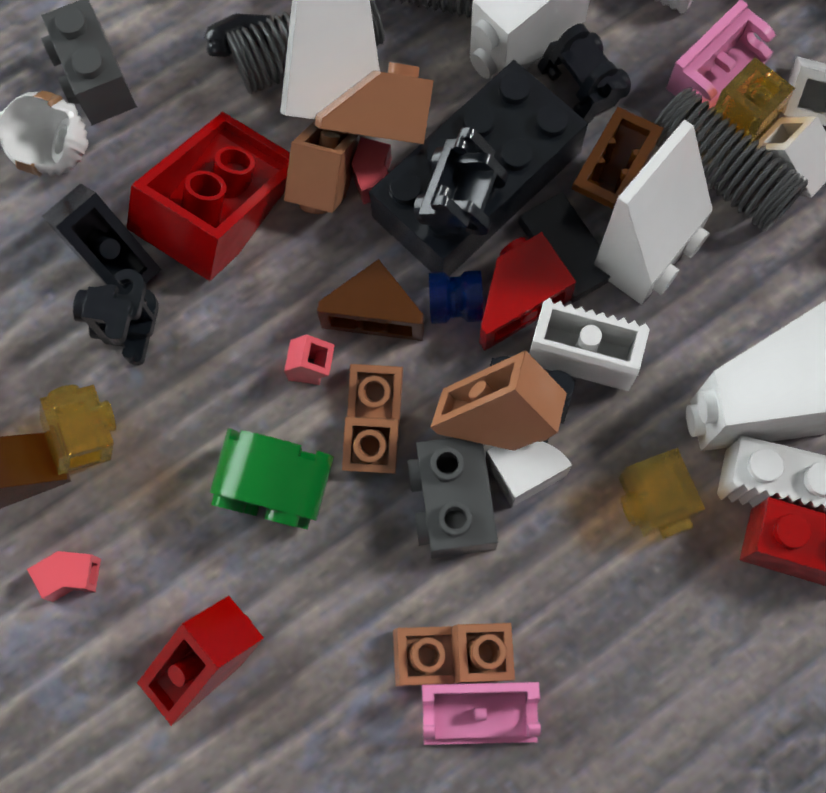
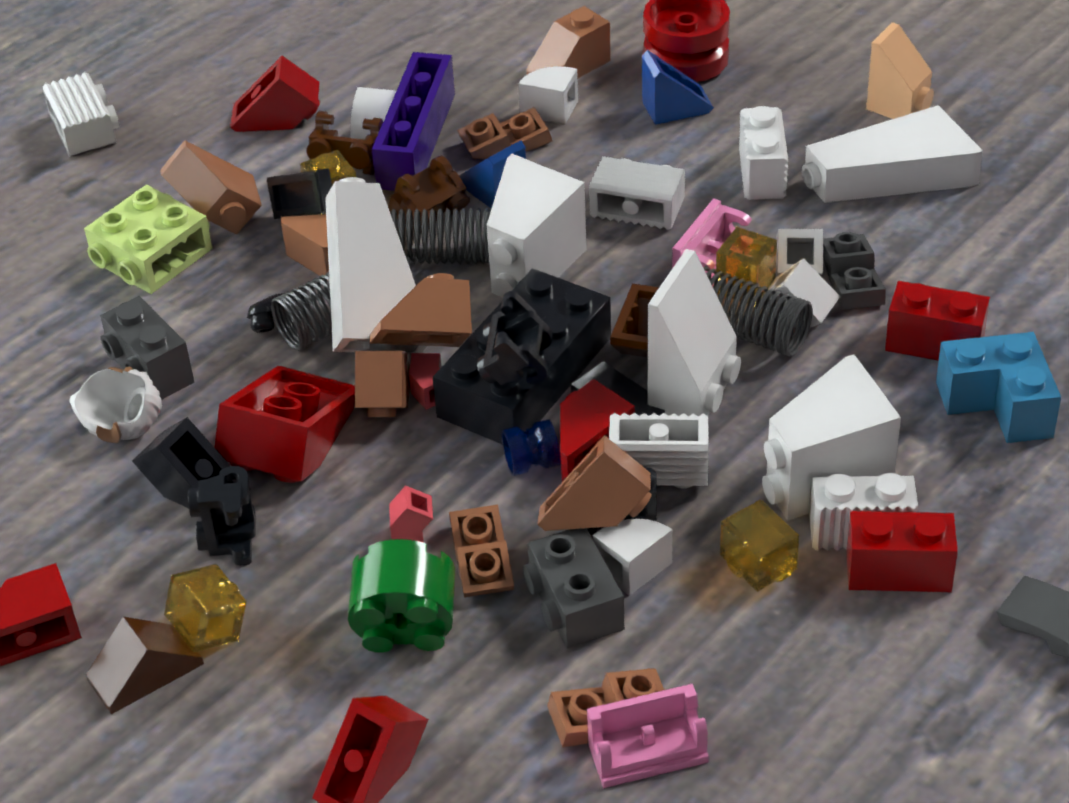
camera: 15 degrees left, 30 degrees down
(64, 573) = (219, 725): coral piece -> none
(373, 306) = (460, 468): reddish brown slope -> none
(598, 78) = (595, 265): black piece -> none

